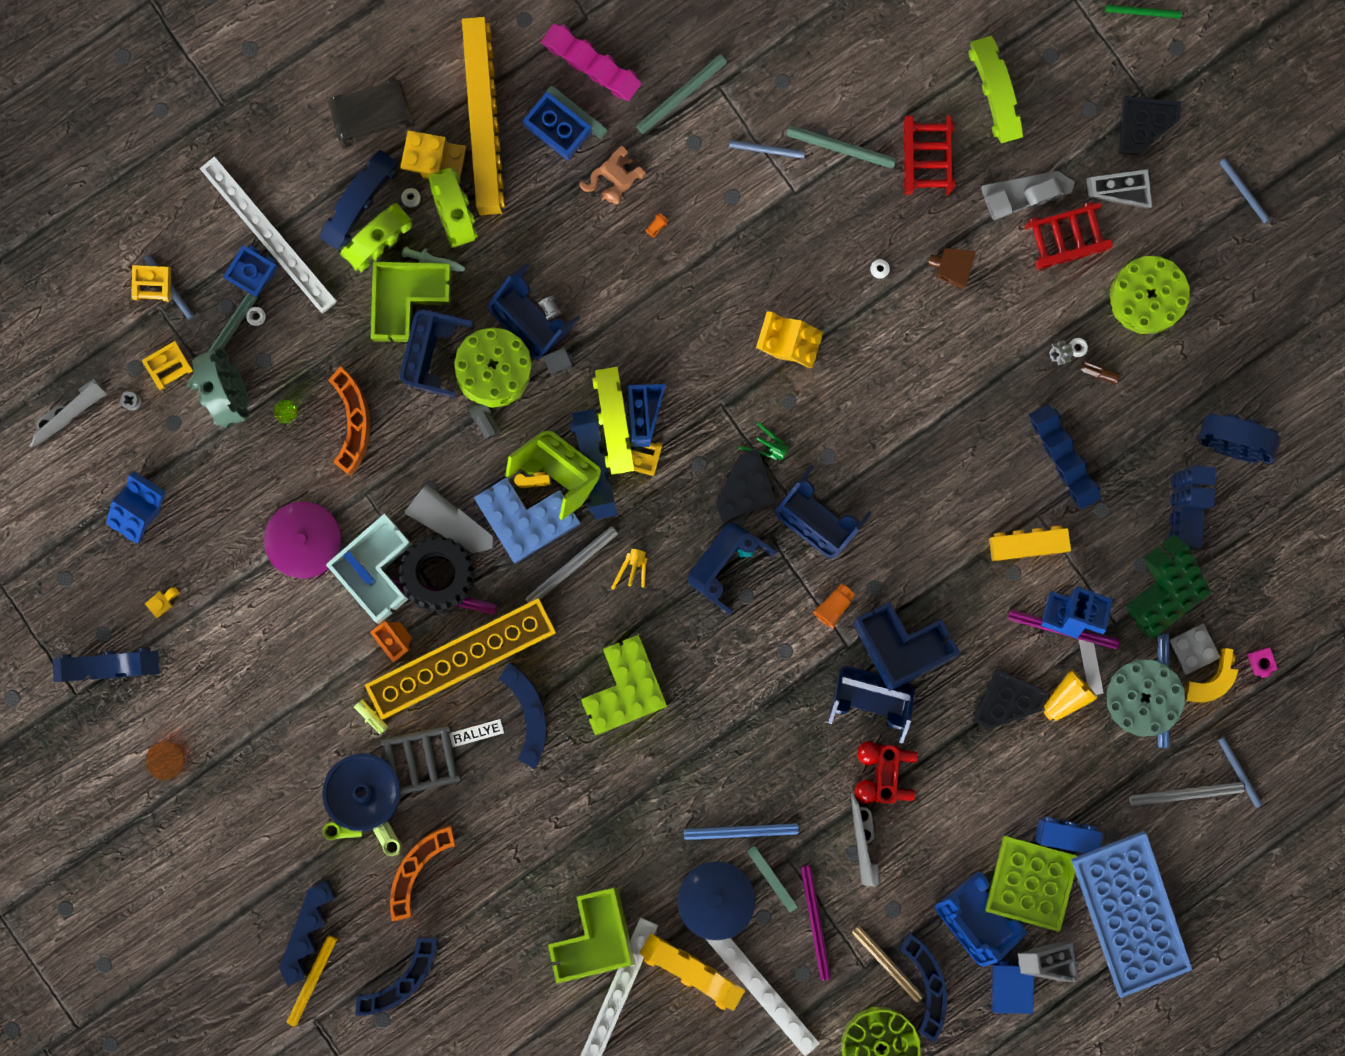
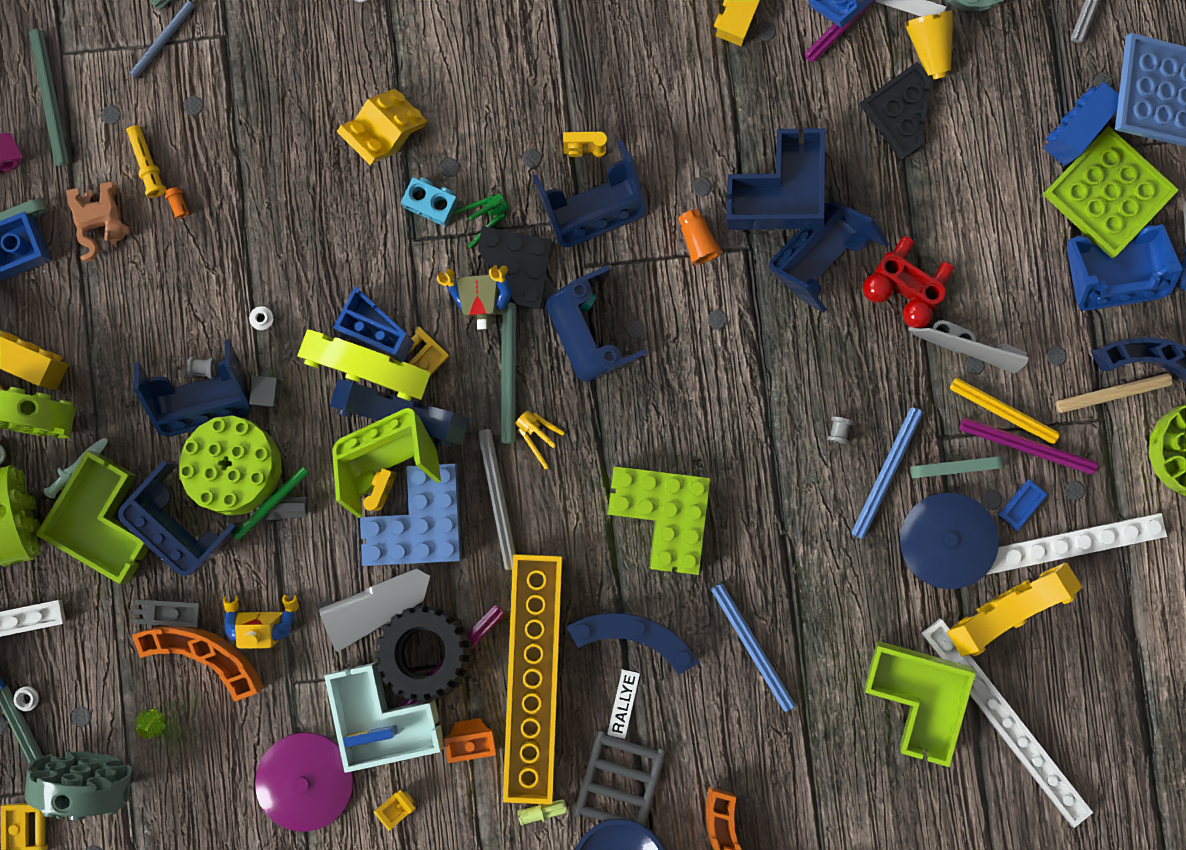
camera: 60 degrees left, 0 degrees up
(318, 613) = (395, 809): none -> yellow bracket
(367, 381) = (168, 613): none -> dark grey hinge
(391, 449) = (258, 628): none -> torso
(482, 410) = (270, 503): none -> green bar
(565, 802) = (753, 647): none -> medium blue axle
(603, 334) = (268, 321): none -> white plate
(664, 524) = (508, 374): none -> sand green axle
(667, 194) = (148, 171): none -> yellow pin
(707, 474) = (479, 295): none -> torso
(750, 401) = (426, 206): none -> medium azure brick
(752, 781) = (840, 430): none -> light grey bush
(771, 941) = (1022, 504): none -> blue tile
(831, 891) = (1004, 411): none -> yellow axle
(852, 483) = (584, 143): none -> yellow plate

